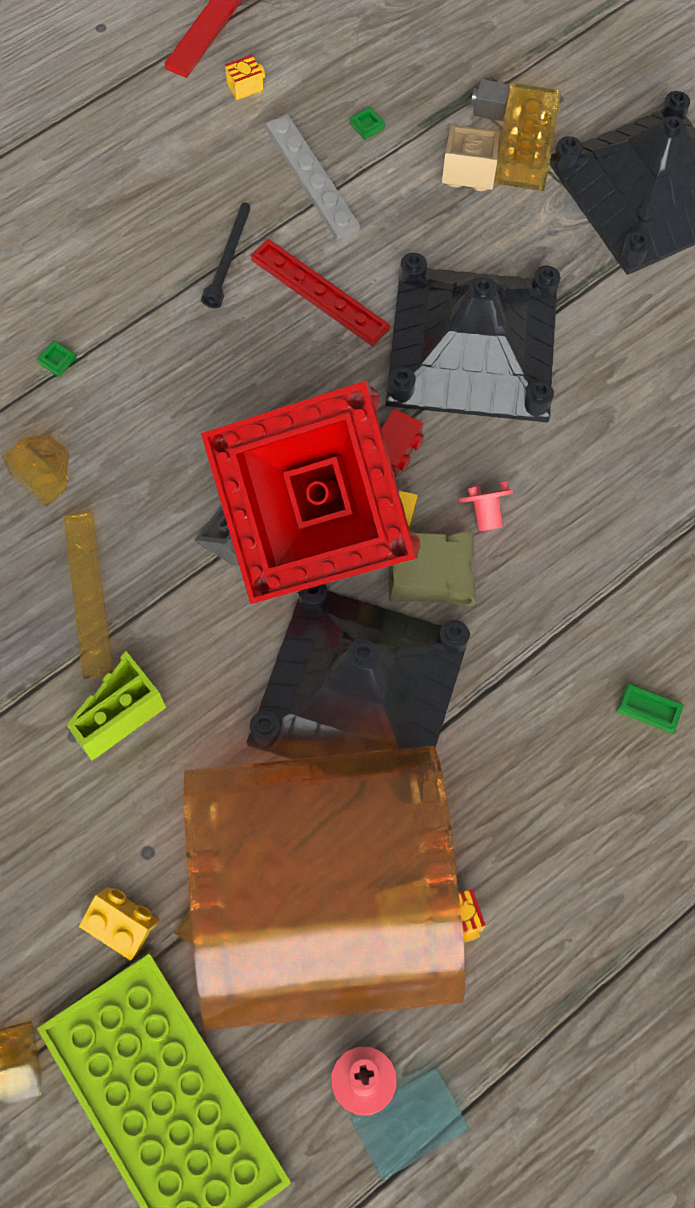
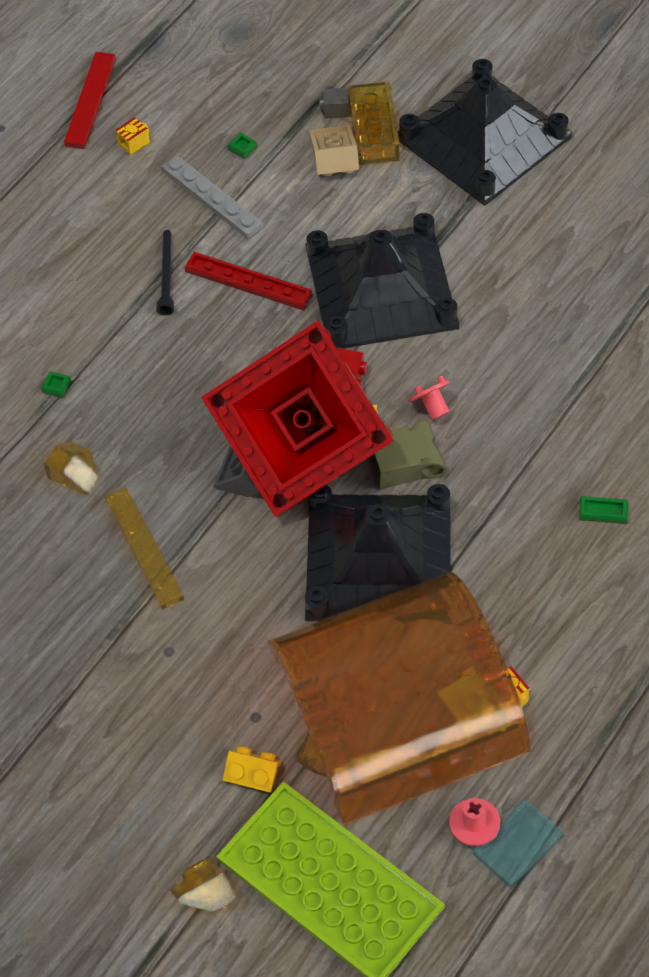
camera: 10 degrees left, 10 degrees down
(116, 709) = (198, 619): lime wedge -> none

